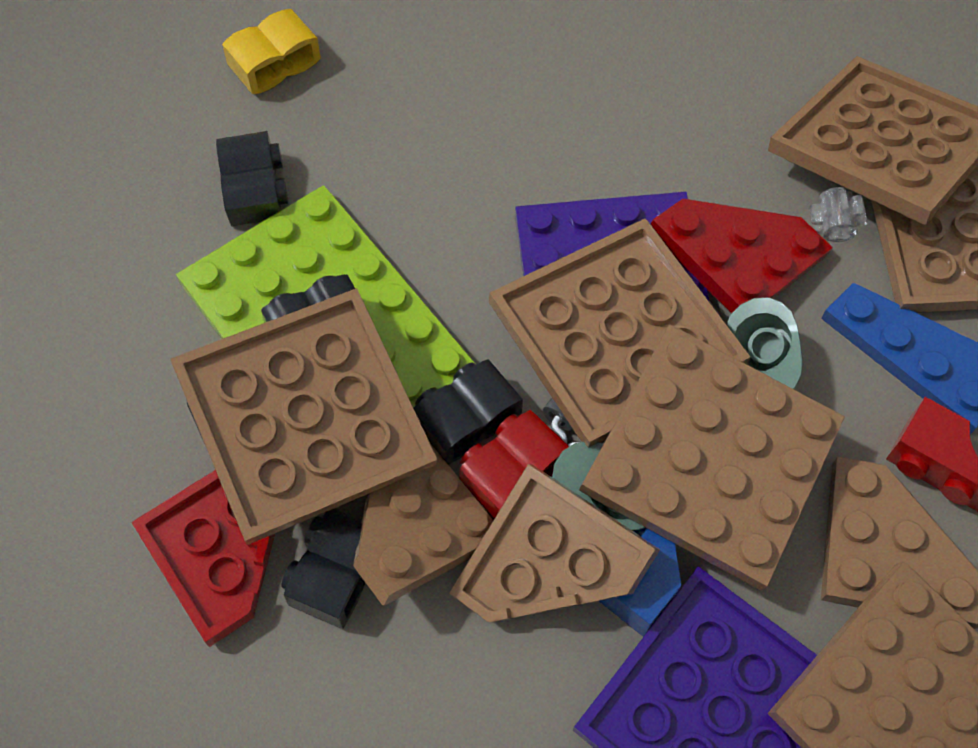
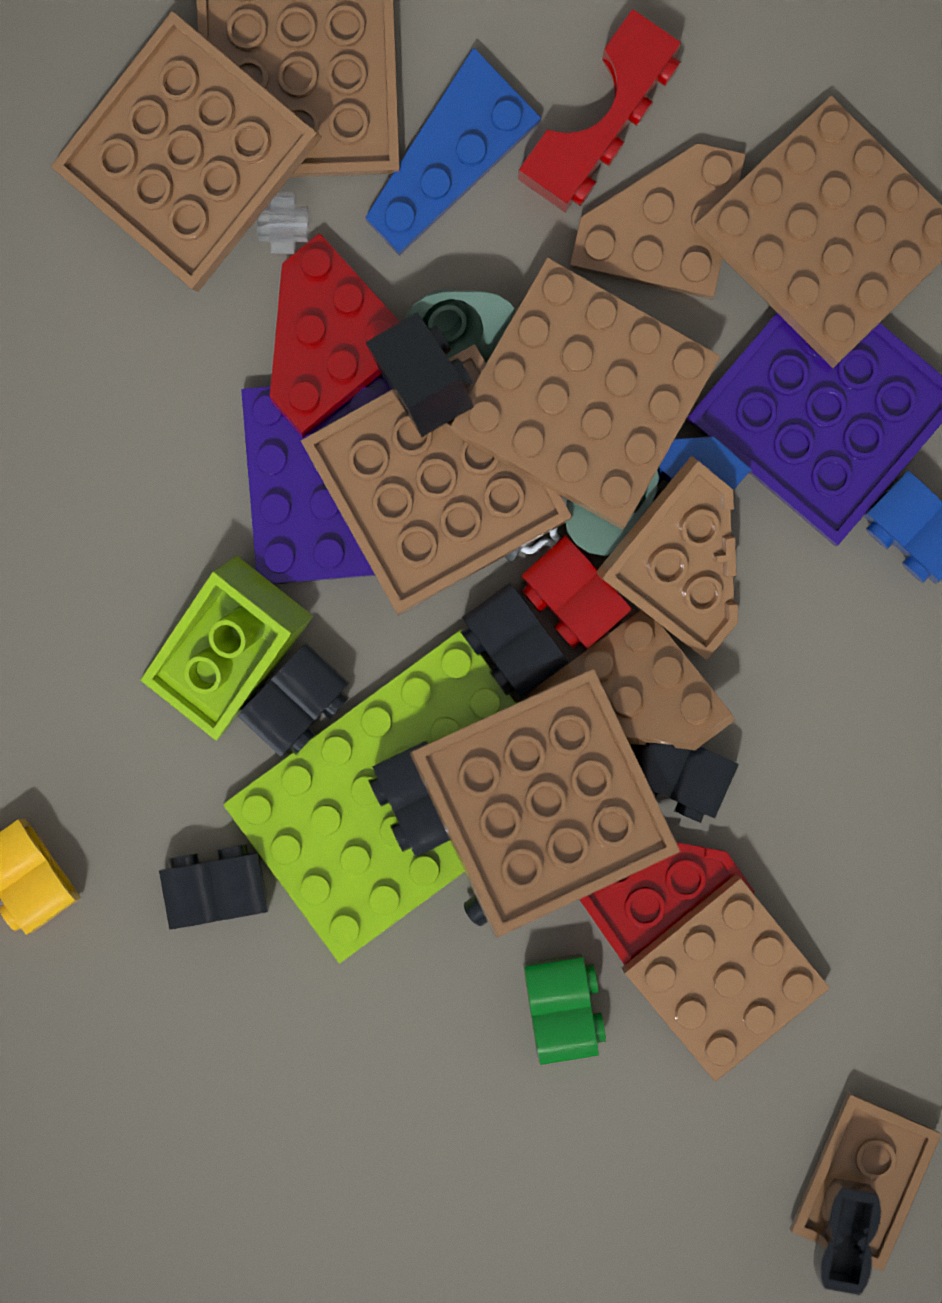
camera: 90 degrees left, 25 degrees up
(108, 458) = (562, 1008): none -> green brick
(119, 616) = (725, 978): none -> medium nougat plate
(413, 234) = (295, 700): none -> black brick
(464, 184) = (225, 646): none -> lime slope
(717, 297) = (421, 374): none -> black brick

